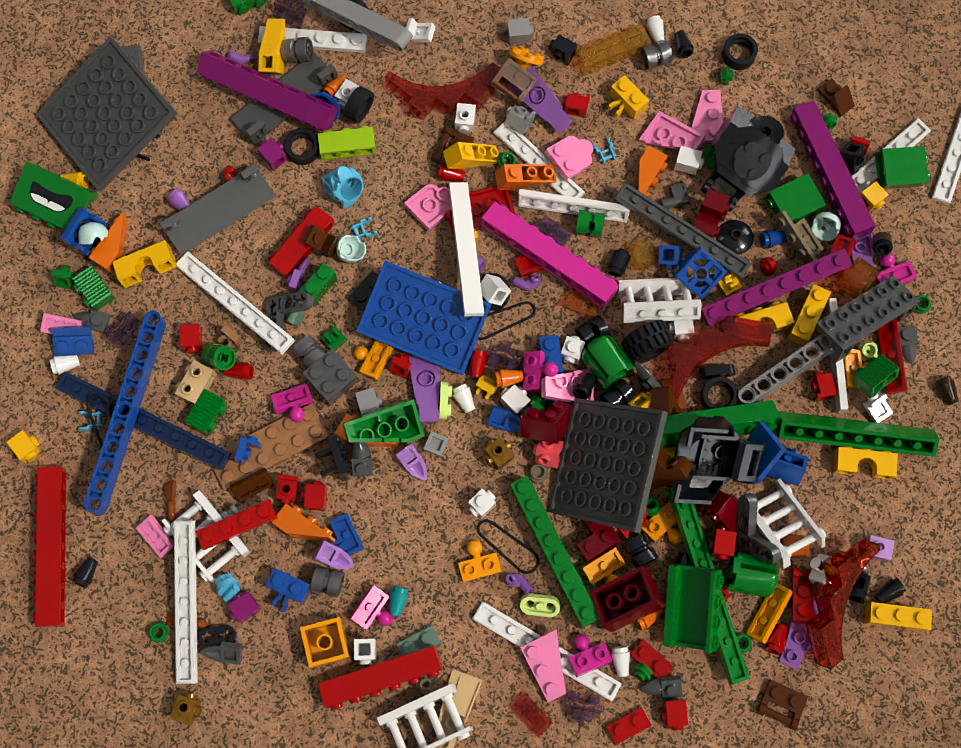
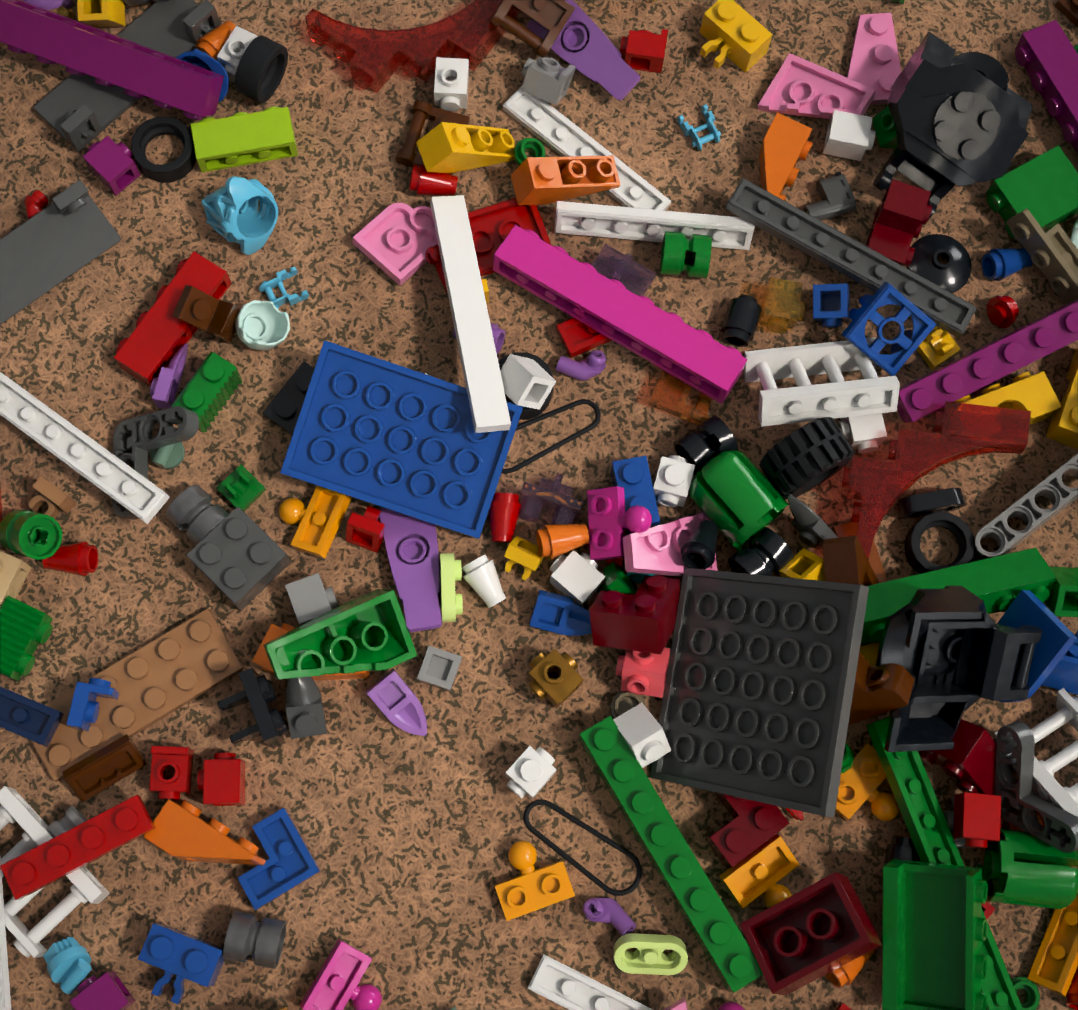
camera: 10 degrees left, 0 degrees up
(292, 400) = (170, 606): dark pink plate -> none
(333, 556) = (262, 892): medium lavender plate -> none
(397, 601) = (388, 963): teal cone -> none
(544, 487) = (643, 734): none -> white brick
(570, 156) = (641, 139): bright pink plate -> none
(639, 549) = (826, 841): black wheel -> none

